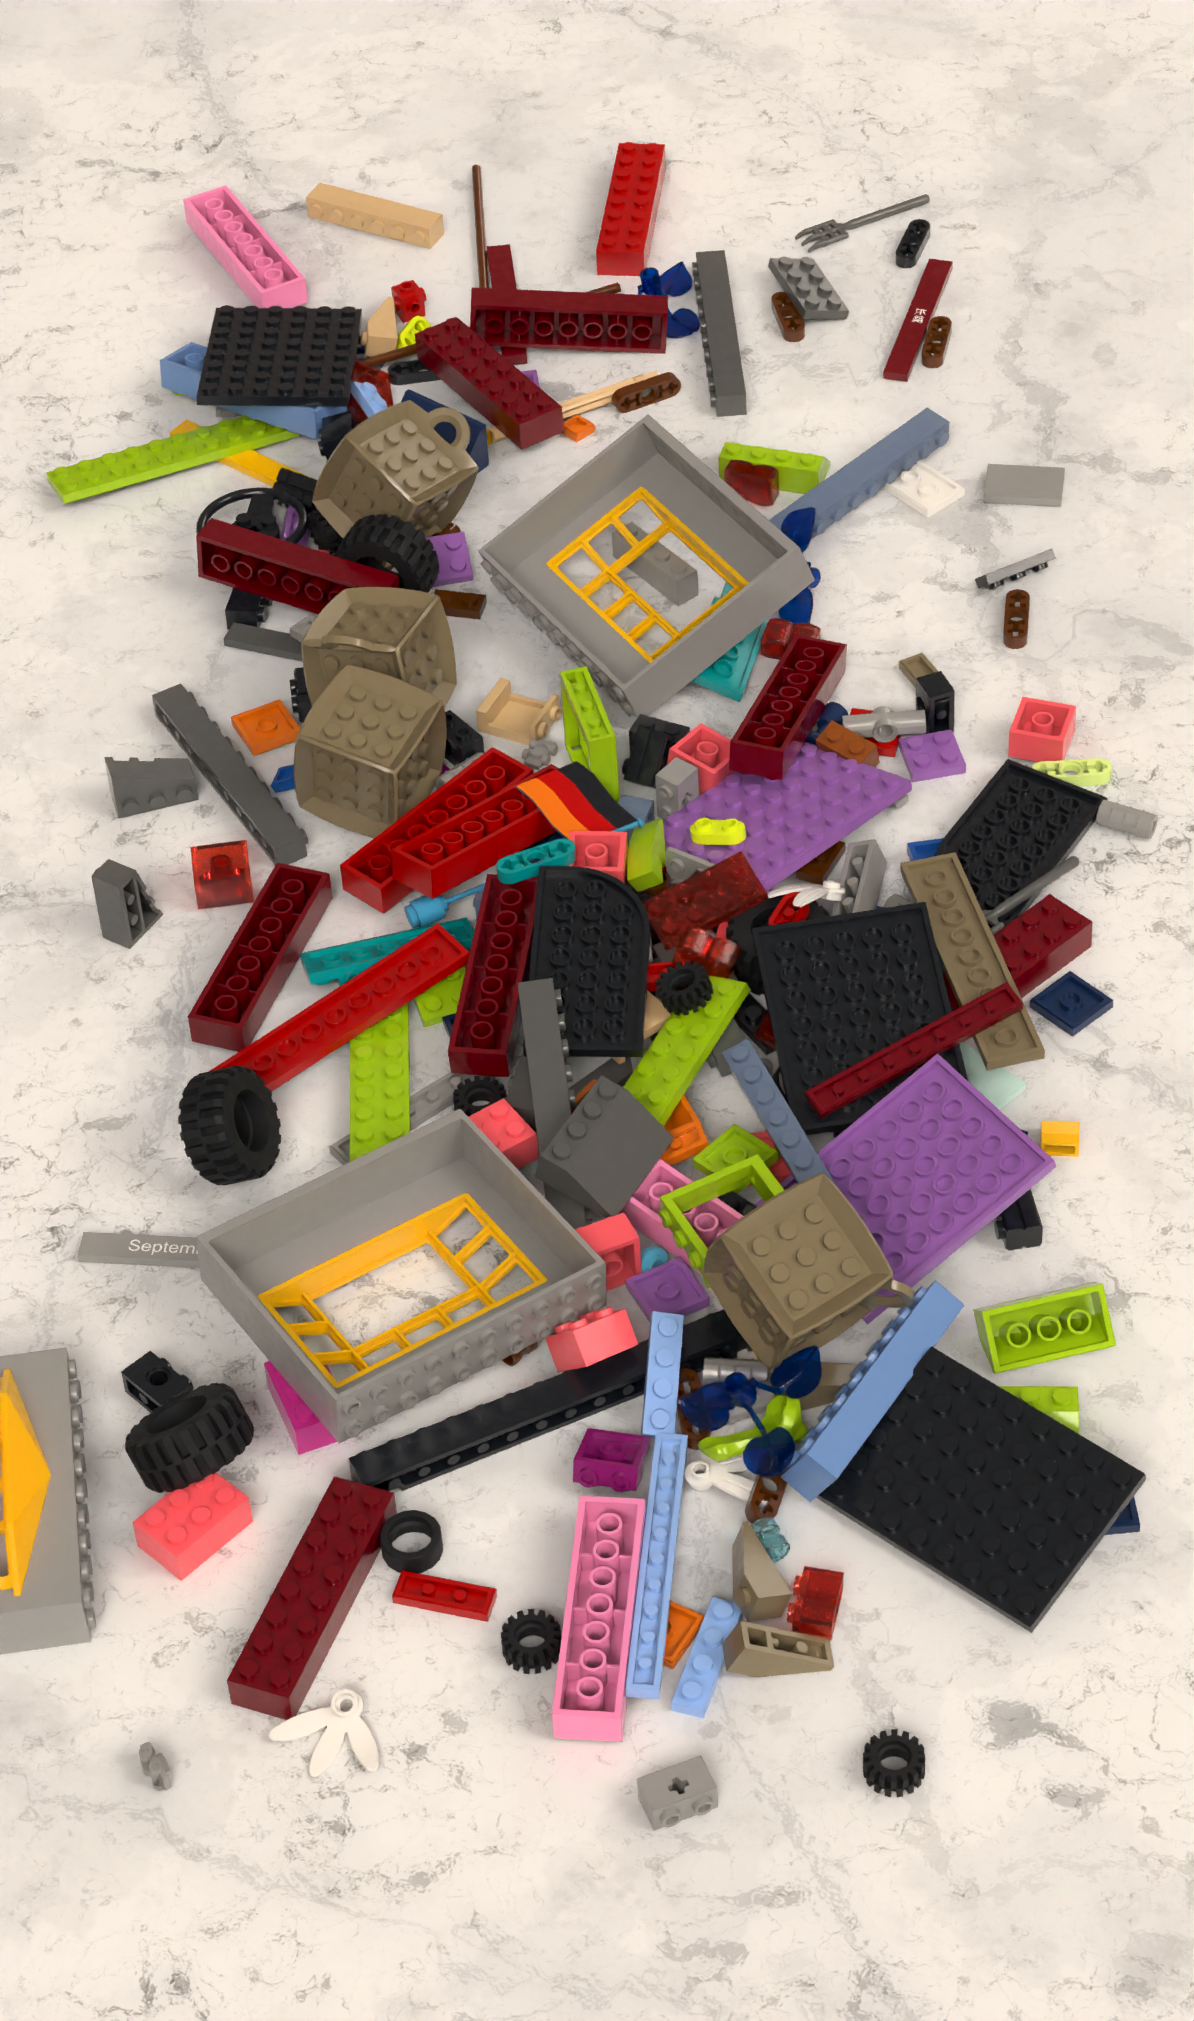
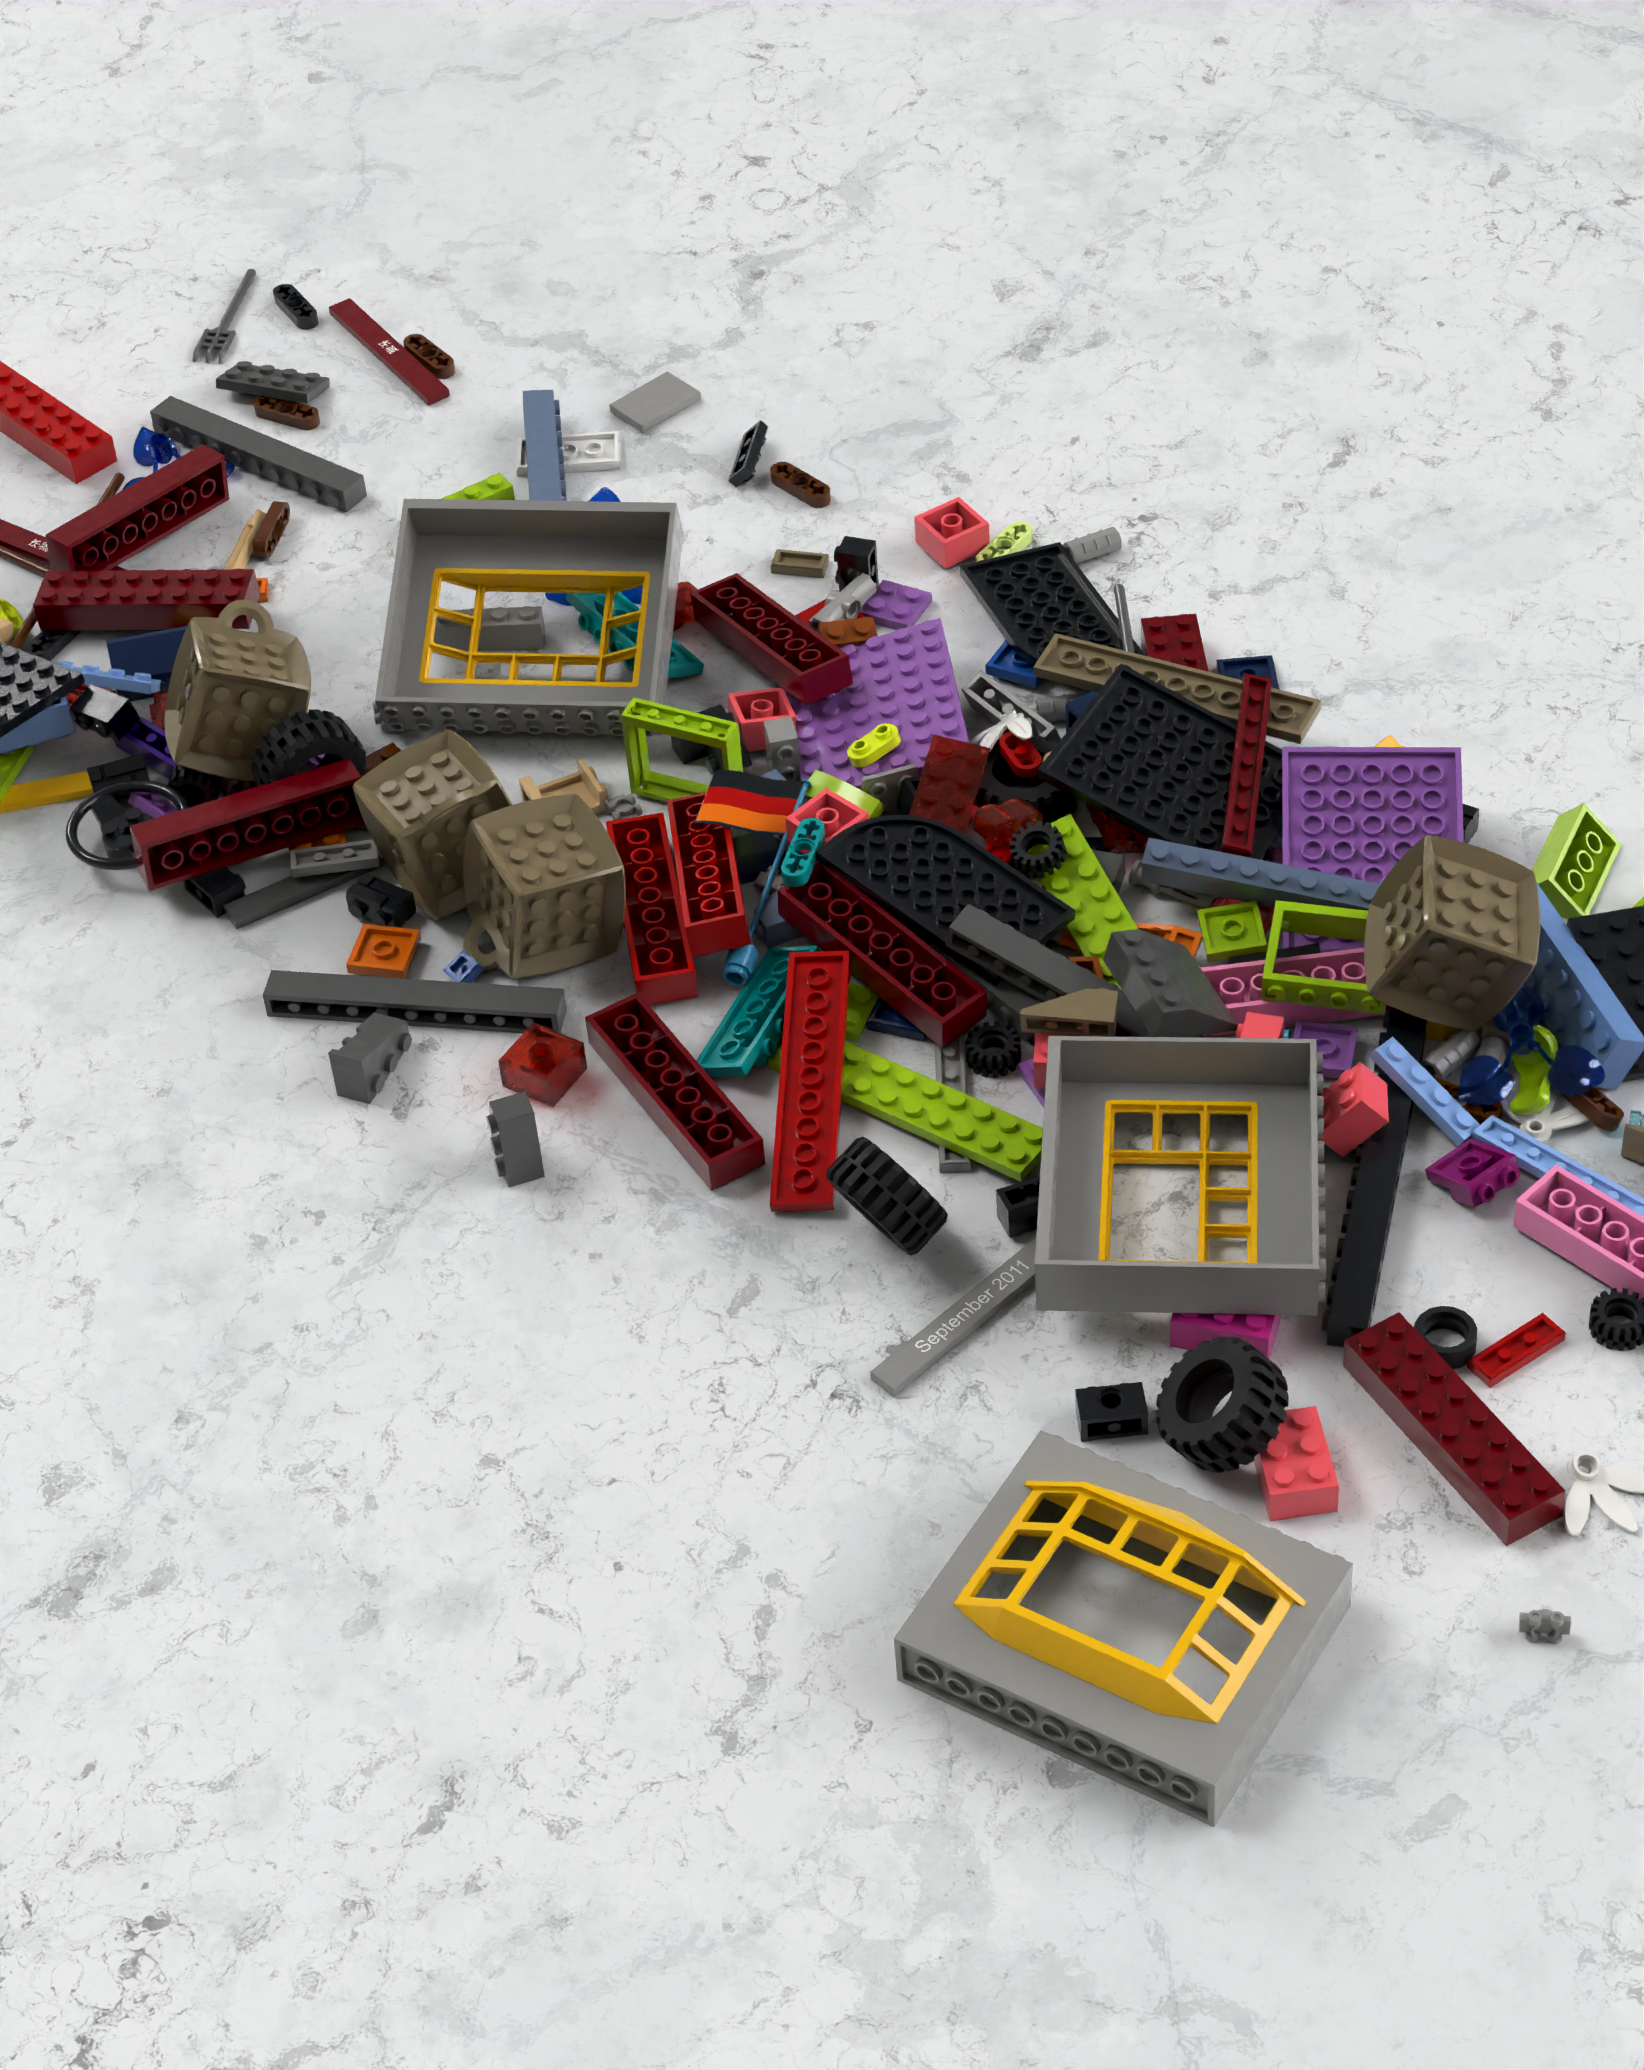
camera: 50 degrees left, 0 degrees up
(511, 1113) = (1075, 1014): none -> dark tan slope

